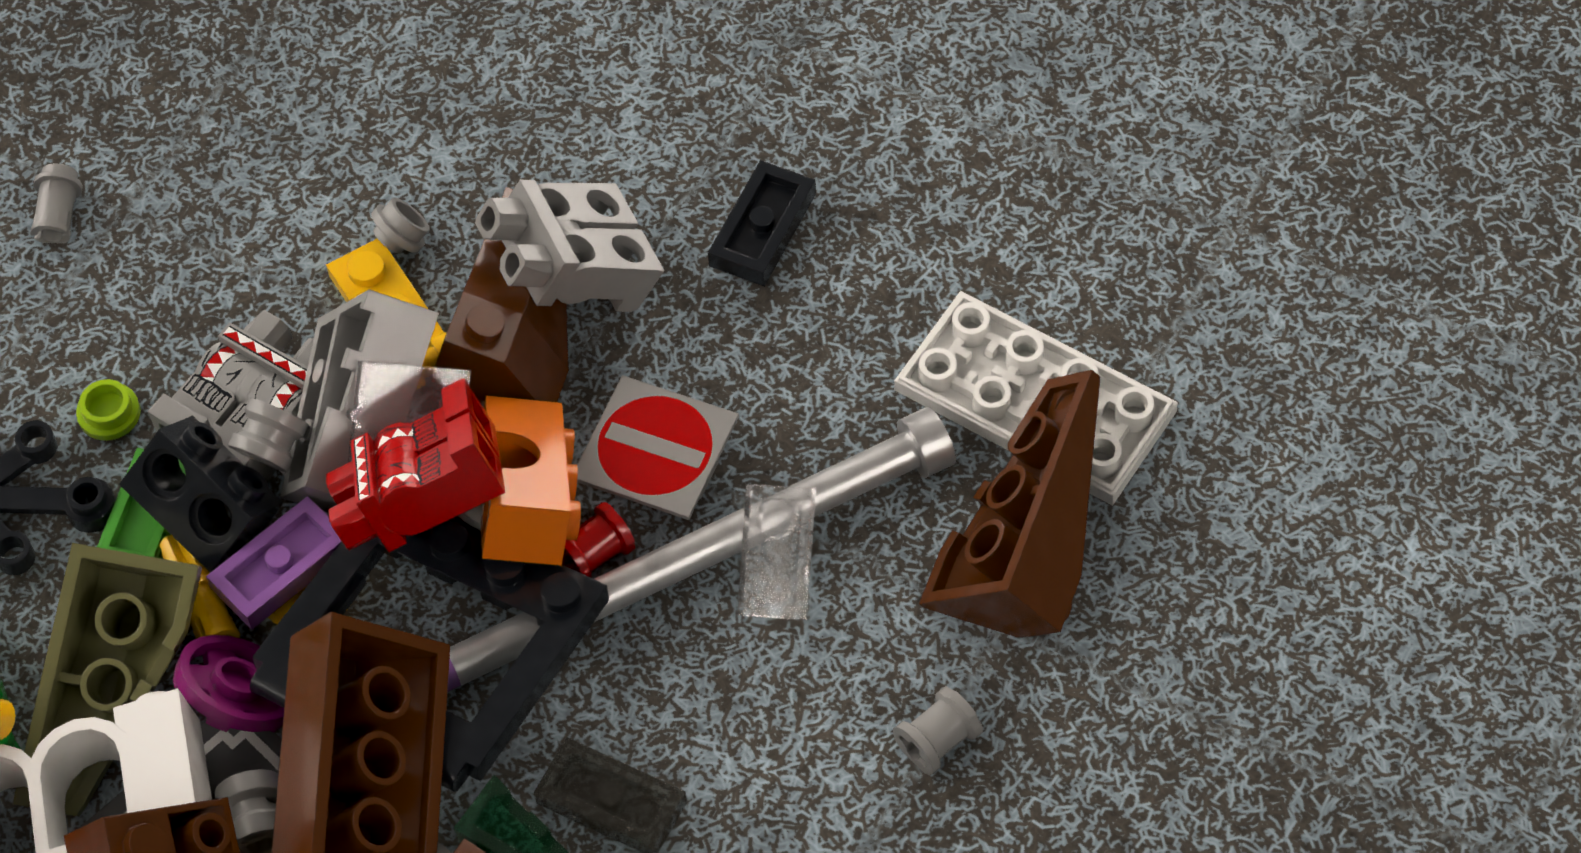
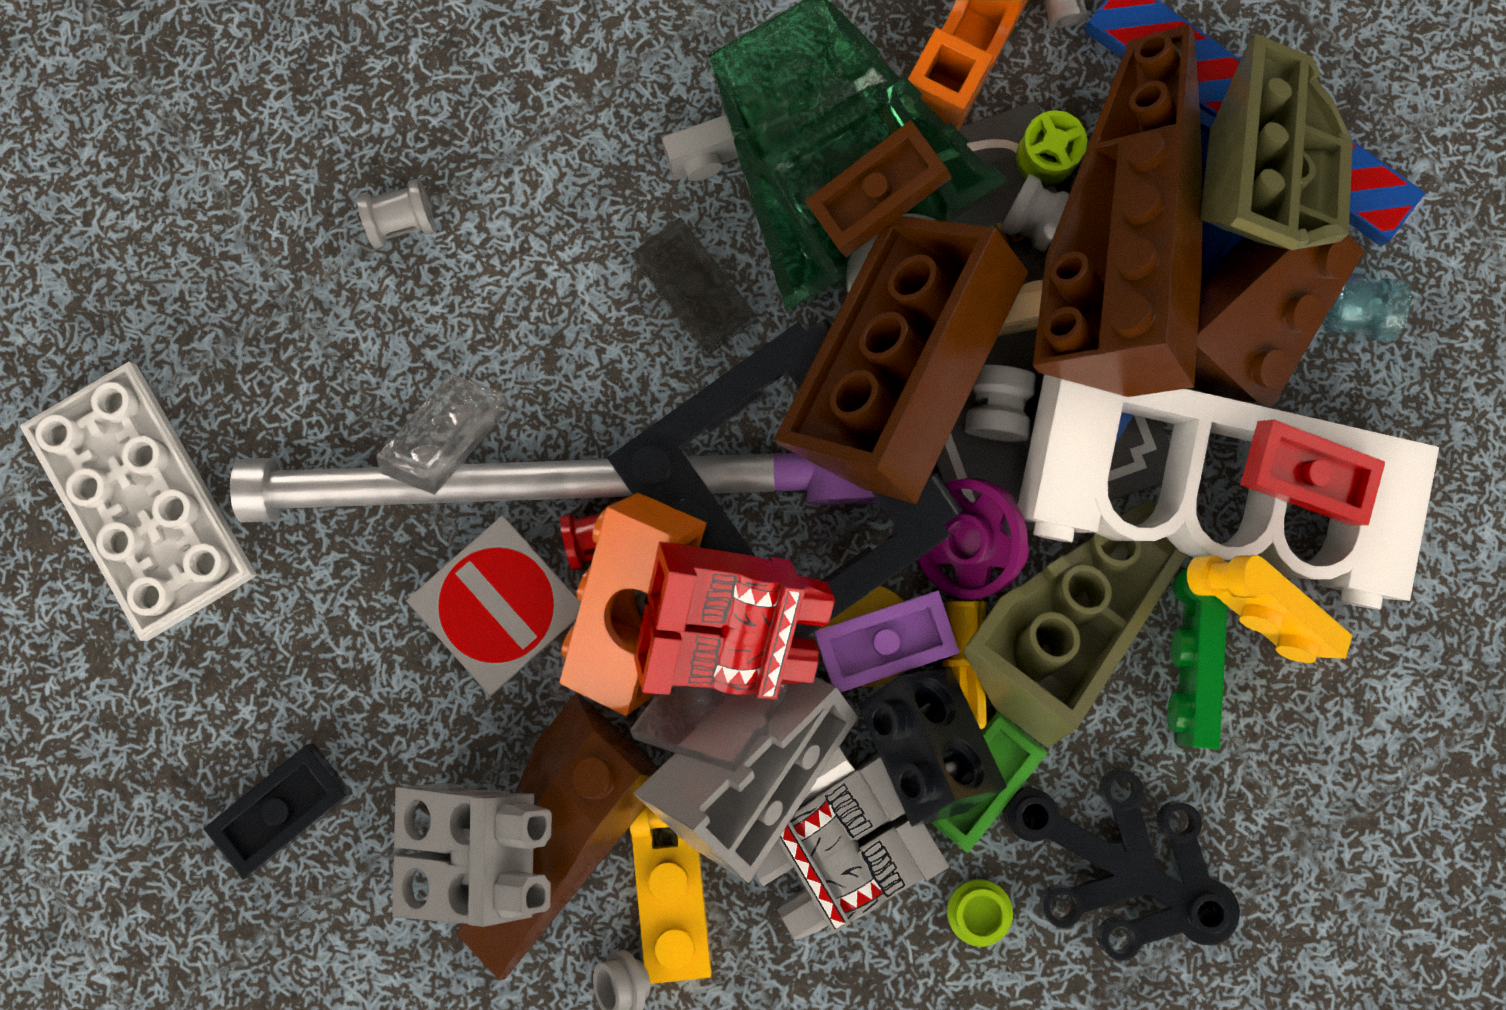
camera: 155 degrees left, 25 degrees up
(268, 435) = (849, 760): light grey wheel -> none
(1027, 540) = (212, 360): reddish brown wedge -> none

